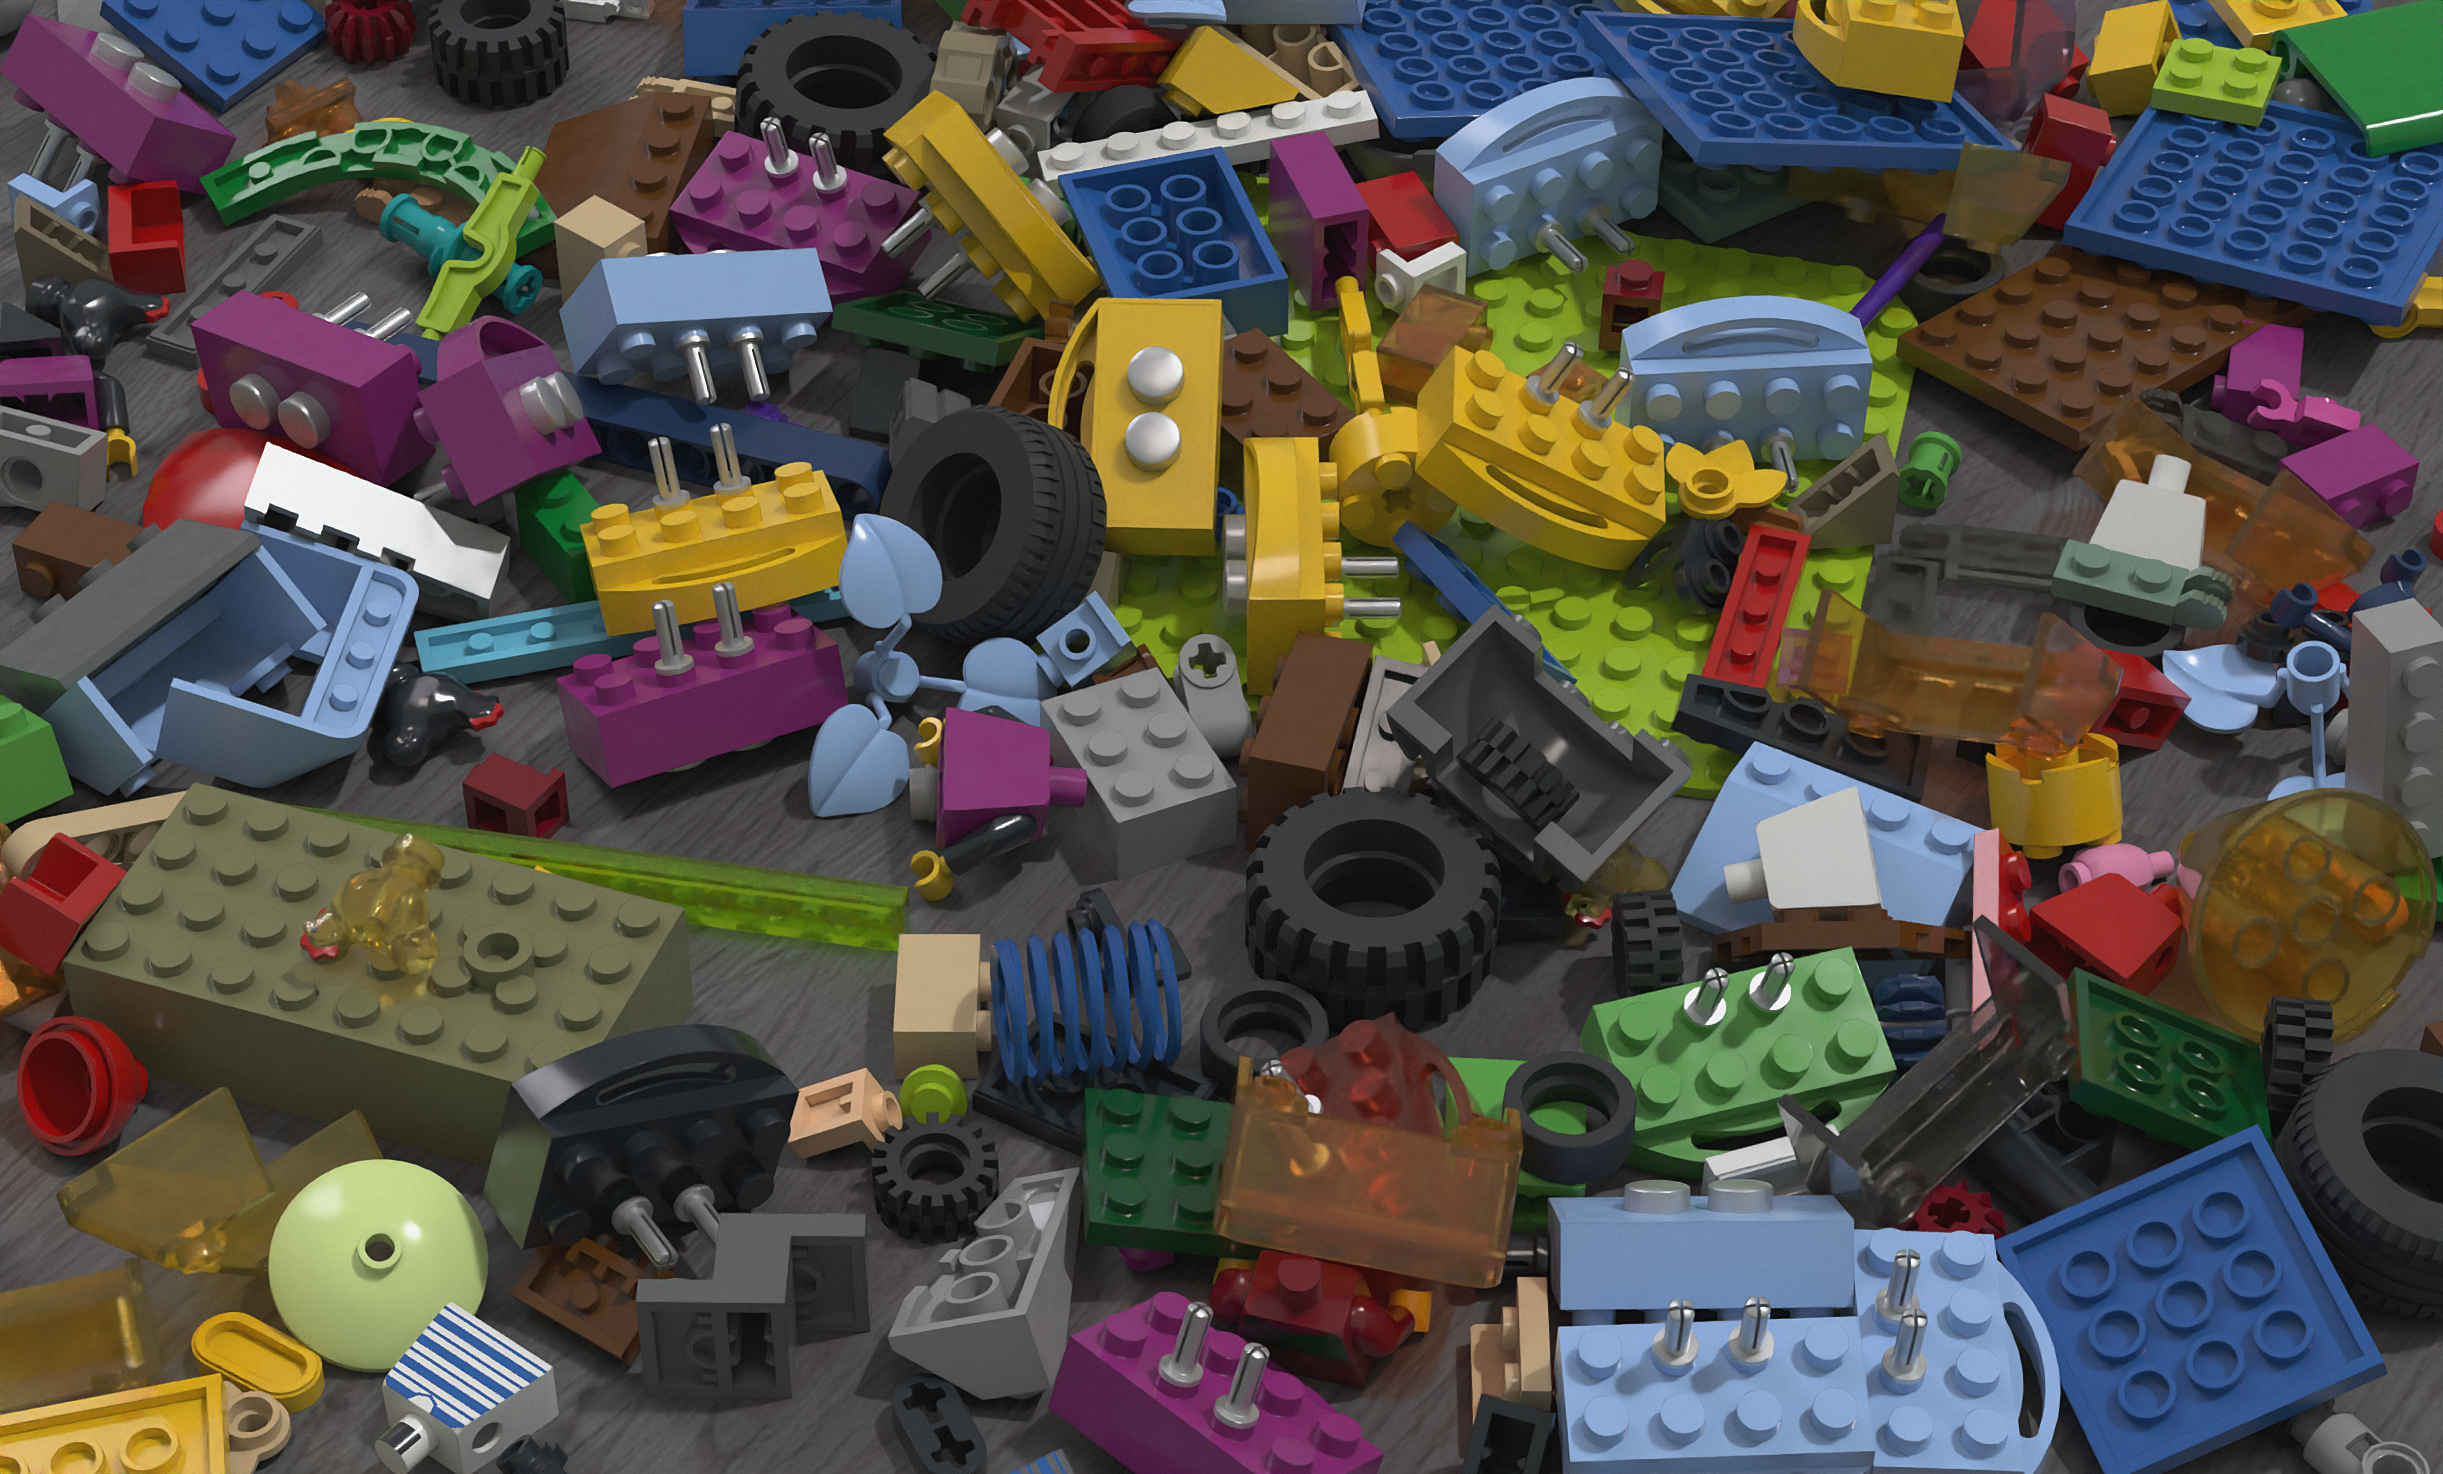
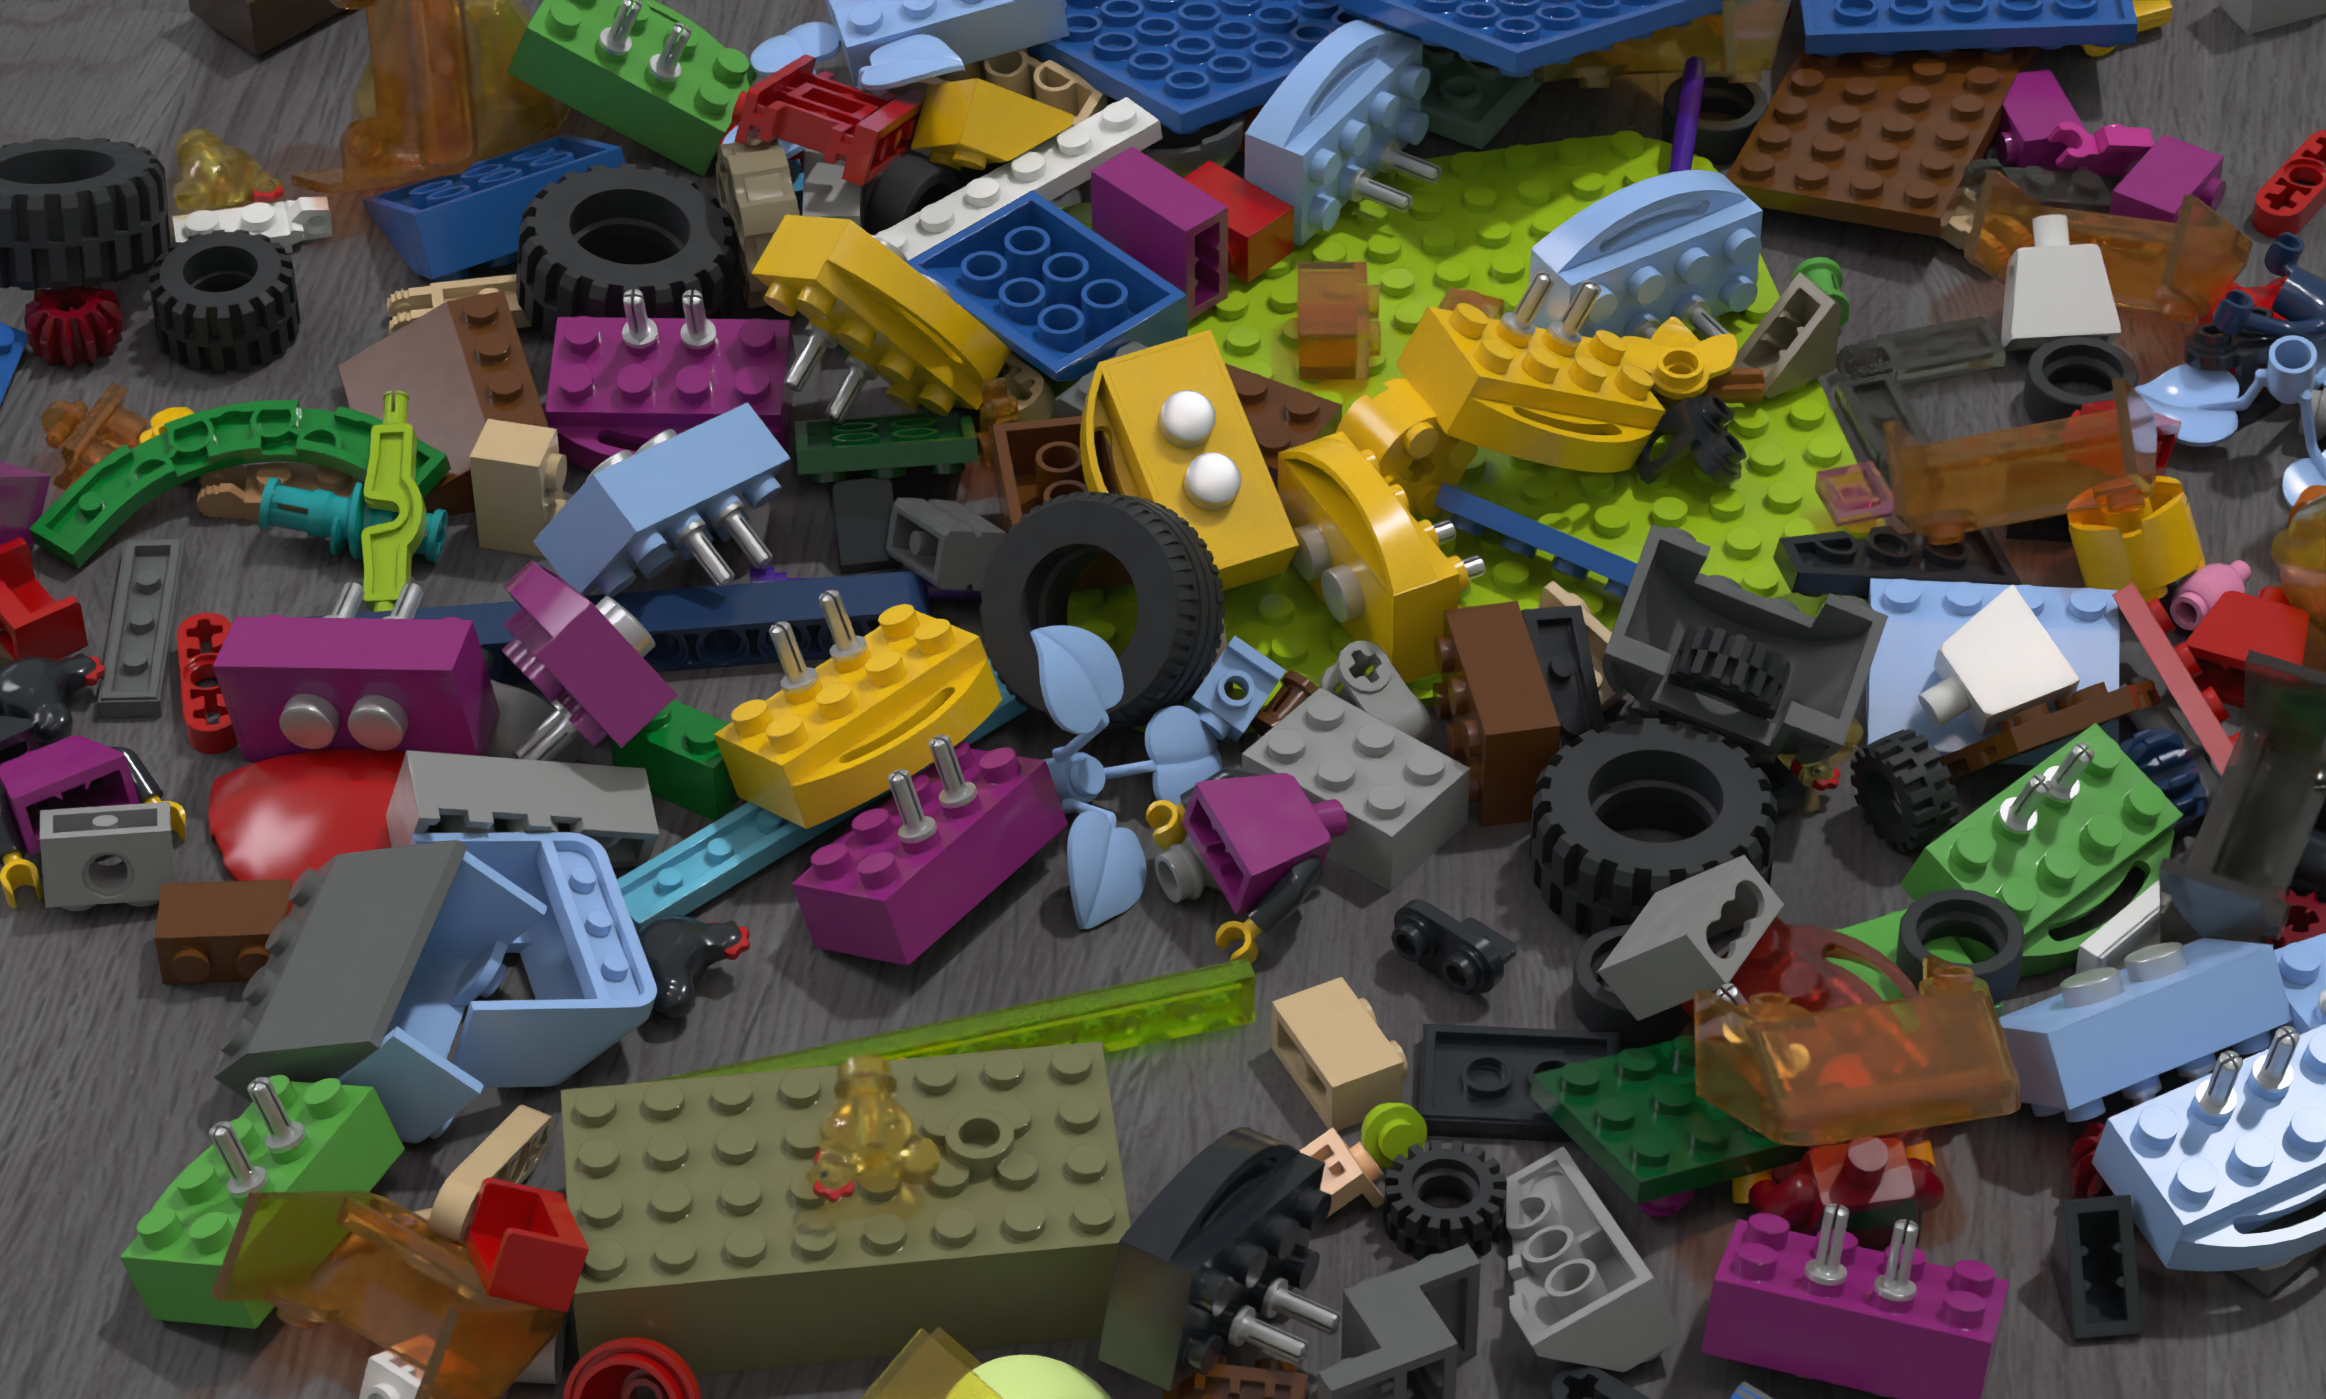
camera: 25 degrees left, 0 degrees up
(515, 798) = (813, 1008): dark red brick -> none
(1007, 971) = (1503, 946): blue piece -> none
(1300, 1008) = (1667, 946): none -> light grey piece
(1356, 338) = (1264, 335): yellow piece -> none
(1400, 281) = (1272, 269): white bracket -> none
(1515, 1355) = (2041, 1168): tan bracket -> none
(1629, 296) = (1479, 217): brick -> none
(1758, 607) = (1778, 462): red plate -> none
(2142, 586) = (2082, 338): sand green hinge -> none

